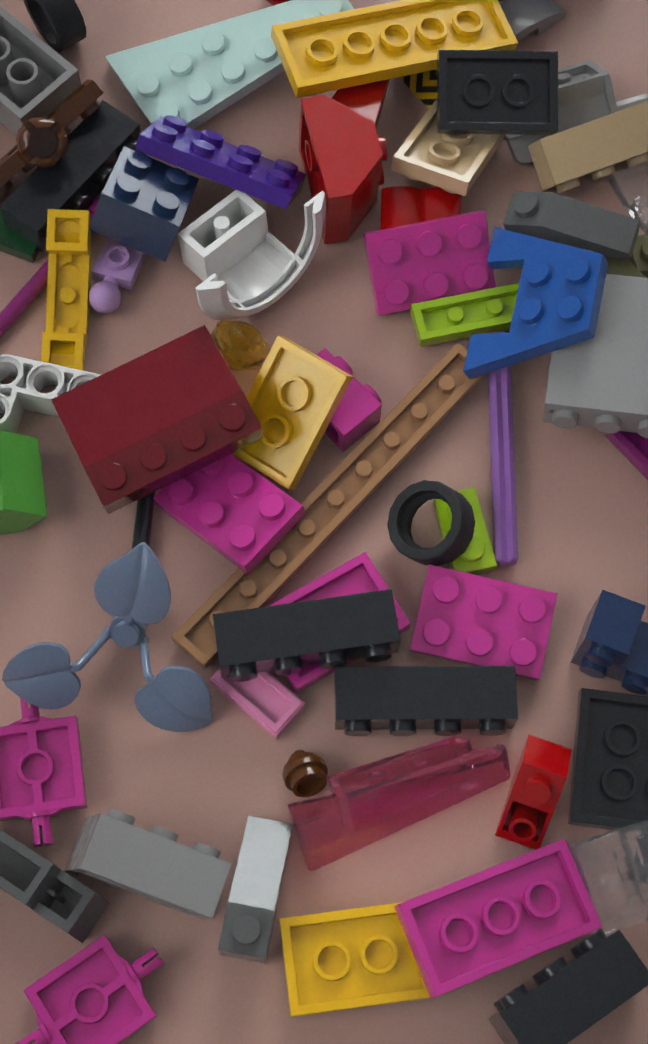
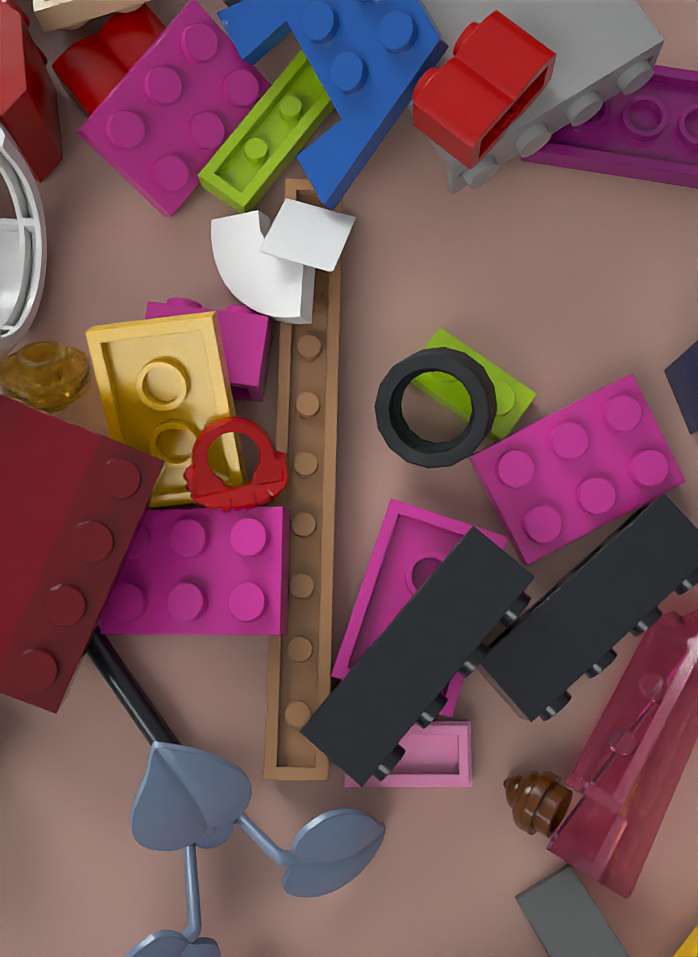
camera: 40 degrees left, 10 degrees up
(309, 485) = (268, 477): none -> red piece
(399, 377) = (260, 280): none -> white tile
(440, 379) = (308, 235): none -> white sticker
(503, 466) = (447, 278): medium lavender axle -> none
(591, 372) = (481, 88): none -> red brick

